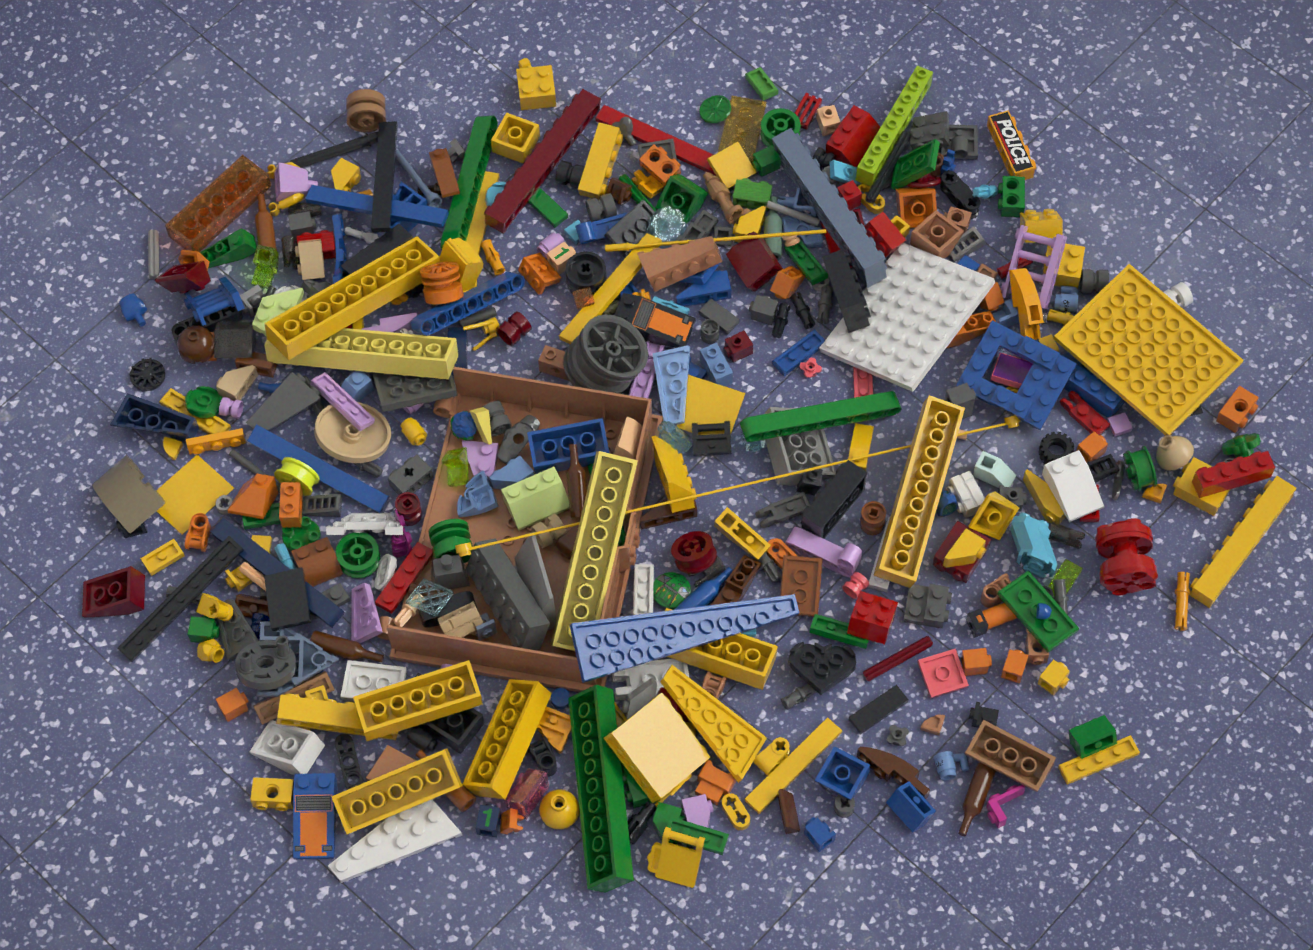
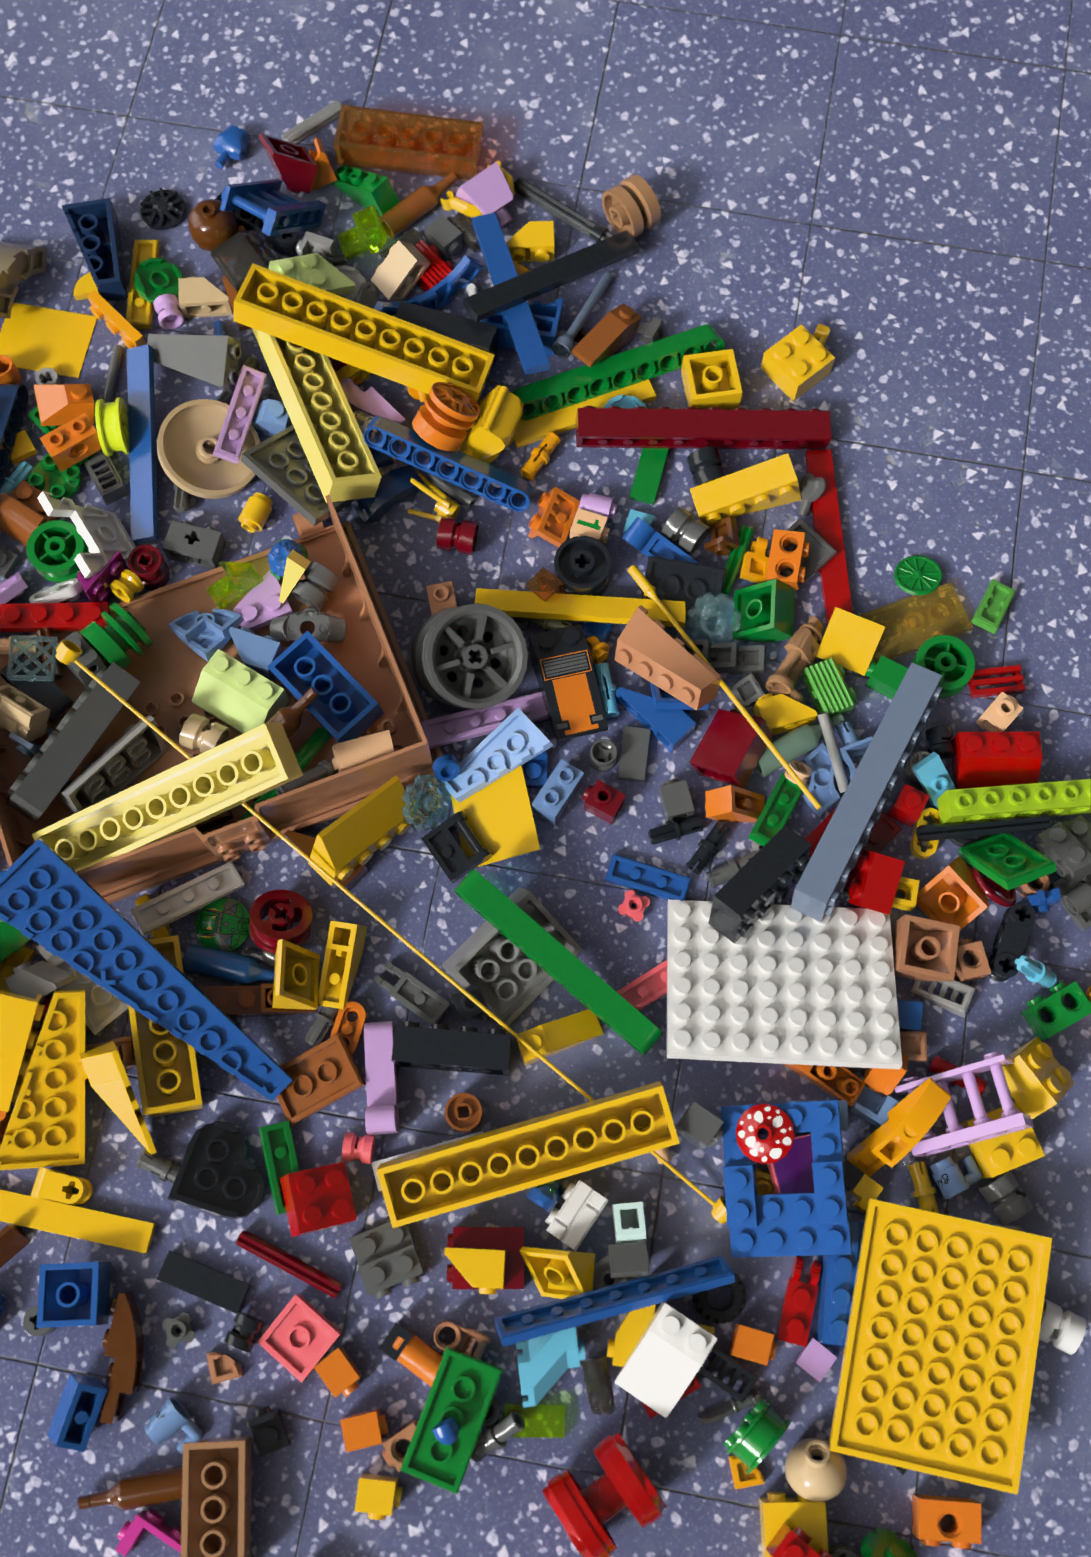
camera: 55 degrees right, 10 degrees up
(415, 525) = (126, 586): none -> yellow wheel
(661, 412) = (446, 767): none -> blue tile
(734, 559) = (295, 977): none -> yellow slope
(734, 681) = (111, 1082): none -> yellow wedge
(921, 699) = (244, 1331): none -> black wheel
(984, 377) = (780, 1133): none -> red dish
(1009, 475) = (628, 1259): none -> dark grey tile
(1026, 492) = (613, 1300): none -> blue tile

